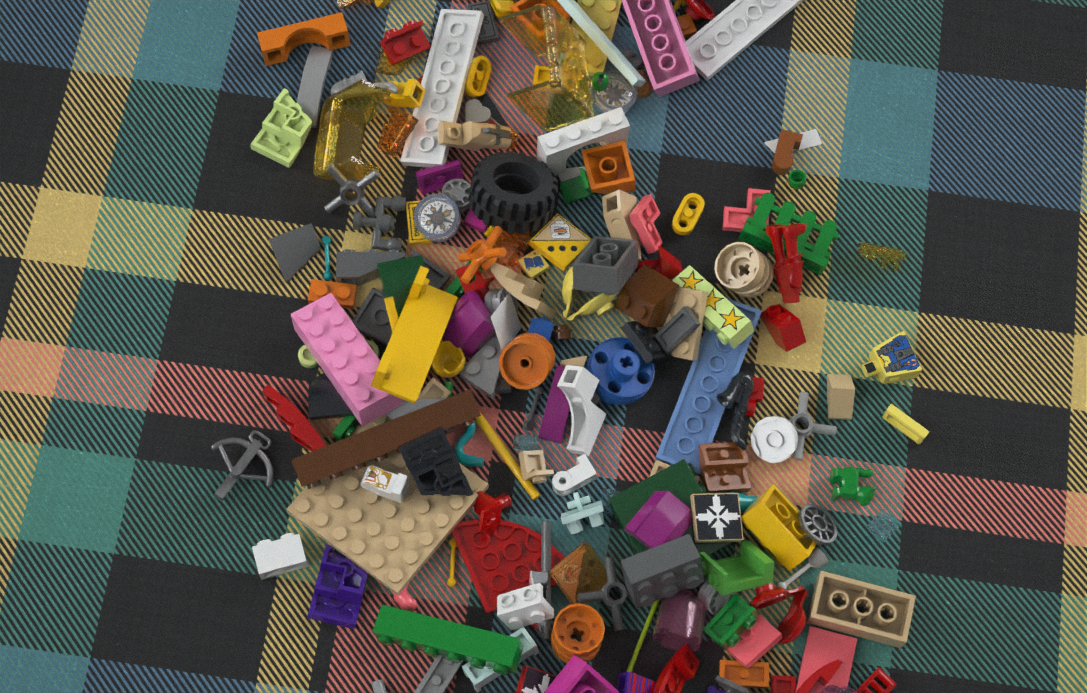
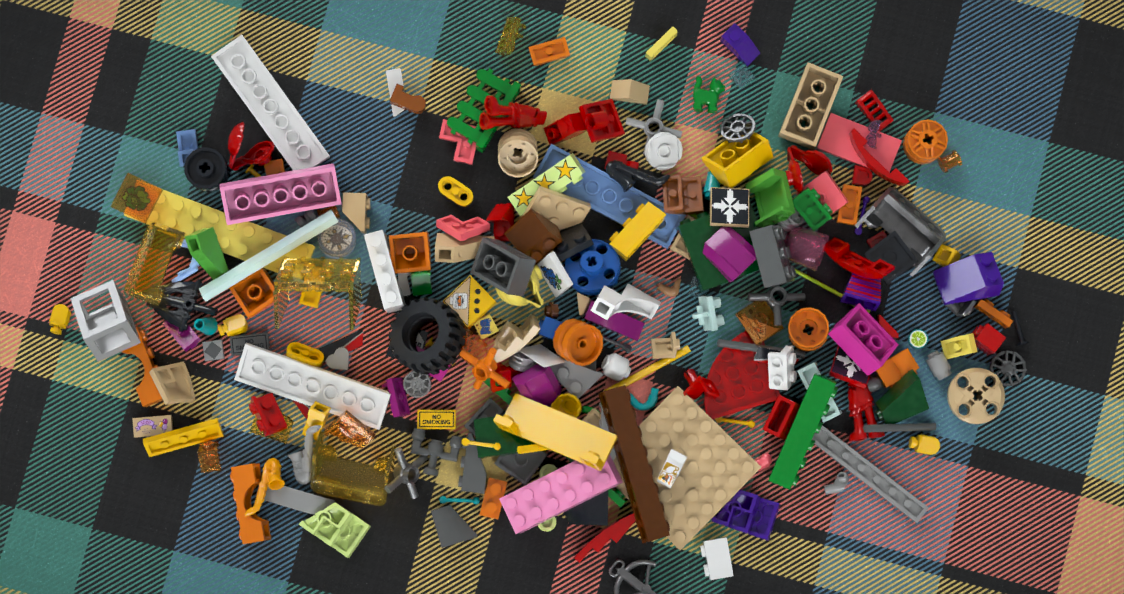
camera: 75 degrees left, 15 degrees up
(330, 54) = (270, 478): none -> light orange piece
(394, 248) = (466, 442): none -> yellow hinge
(434, 465) = (662, 427): black slope -> none
(437, 217) = (439, 402): clear piece -> none
(463, 610) = (781, 417): none -> red brick
(476, 136) = (366, 361): tan plate -> none
(503, 412) = (616, 367): none -> white head
(525, 443) = (644, 352): clear light blue tile -> none
(568, 481) = (680, 322): white leg -> none
(599, 87) = (328, 253): green hinge -> none
(603, 468) = (672, 292): none -> medium nougat animal
(605, 328) = (554, 274): none -> white tile
(650, 111) = (355, 208): none -> tan slope
(670, 414) = (637, 230): none -> yellow slope
(677, 330) = (566, 215): dark grey tile -> none
(797, 179) = (430, 94): green hinge -> none
(799, 363) = (601, 120): none -> red plate
(816, 560) = (766, 133): hinge -> none
(871, 299) = (549, 51): none -> orange plate
(893, 360) = (605, 44): torso -> none
(922, 517) = (740, 44): none -> dark purple slope

